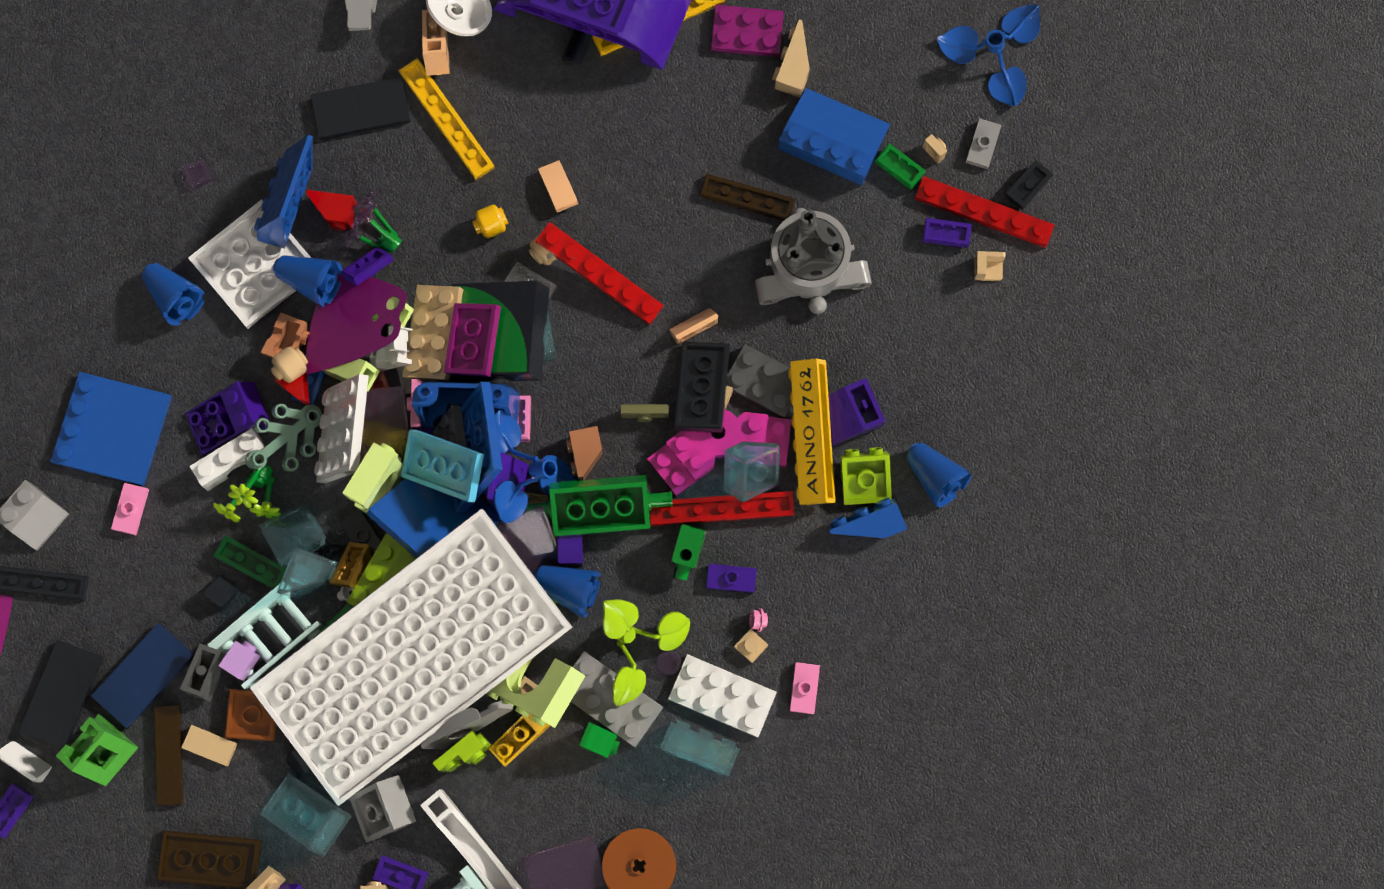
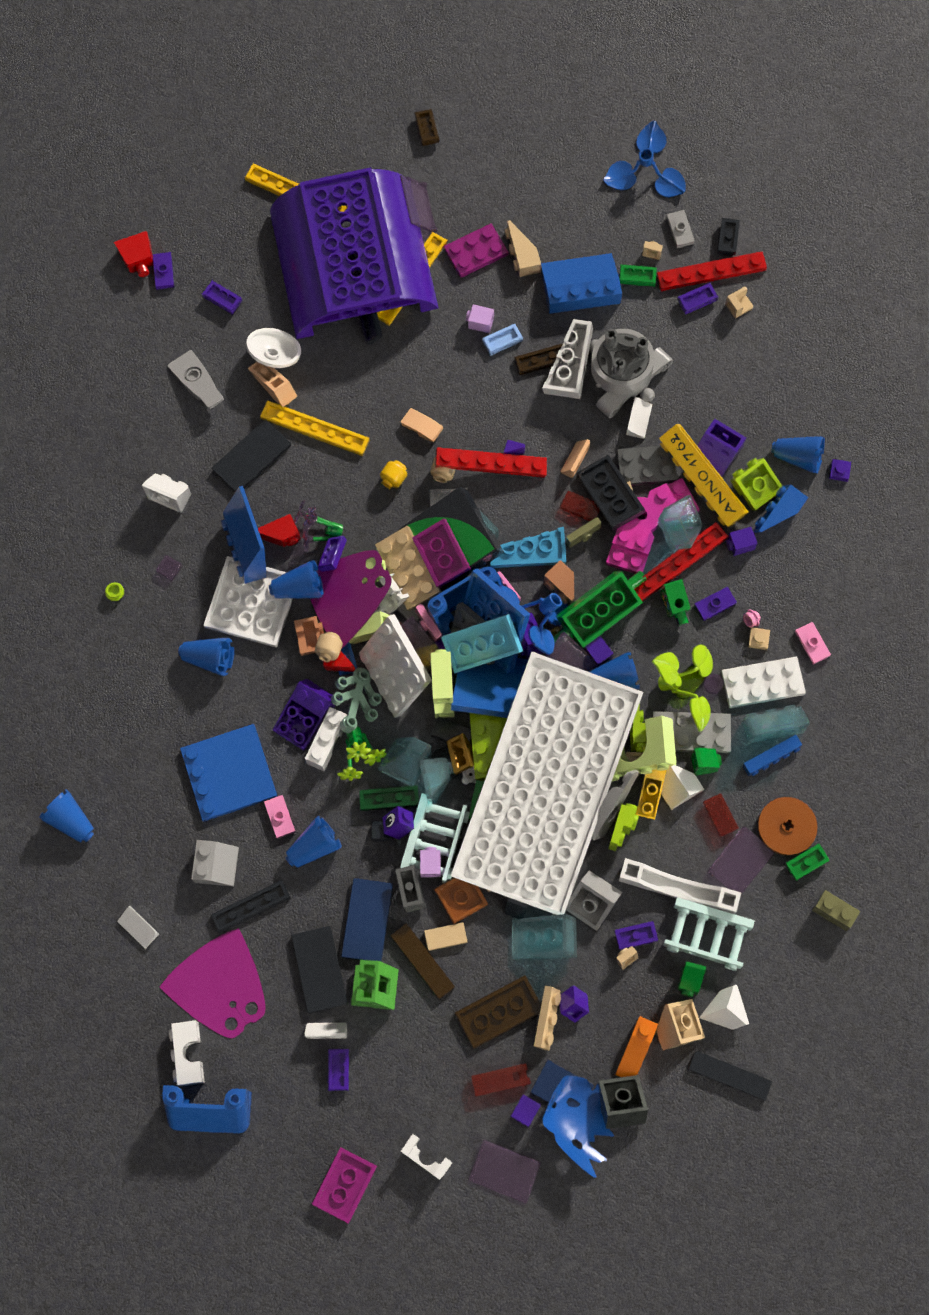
camera: 30 degrees left, 5 degrees down
(126, 164) = (114, 591): none -> lime plate
(142, 560) = (313, 843): none -> blue cone
(238, 596) = (398, 822): none -> dark purple brick
(247, 91) = (167, 492): none -> white slope
(554, 650) = (638, 732): none -> lime plate
(556, 749) = (679, 786): none -> white slope
(576, 808) = (720, 815): none -> clear red plate
(584, 399) = (533, 551): none -> dark azure wing
(634, 273) = (514, 448): none -> dark purple slope
(643, 646) = (690, 683): none -> clear neon green tile
(662, 380) = (579, 506): none -> clear red plate
(676, 781) = (772, 755): none -> blue piece
(698, 109) = (480, 318): none -> lavender brick
(707, 146) = (502, 339): none -> light blue tile
(756, 220) = (570, 365): none -> white wedge
(791, 324) = (639, 418): none -> white slope
(805, 529) = (741, 541): none -> dark purple brick
(968, 519) = (840, 470): none -> dark purple plate

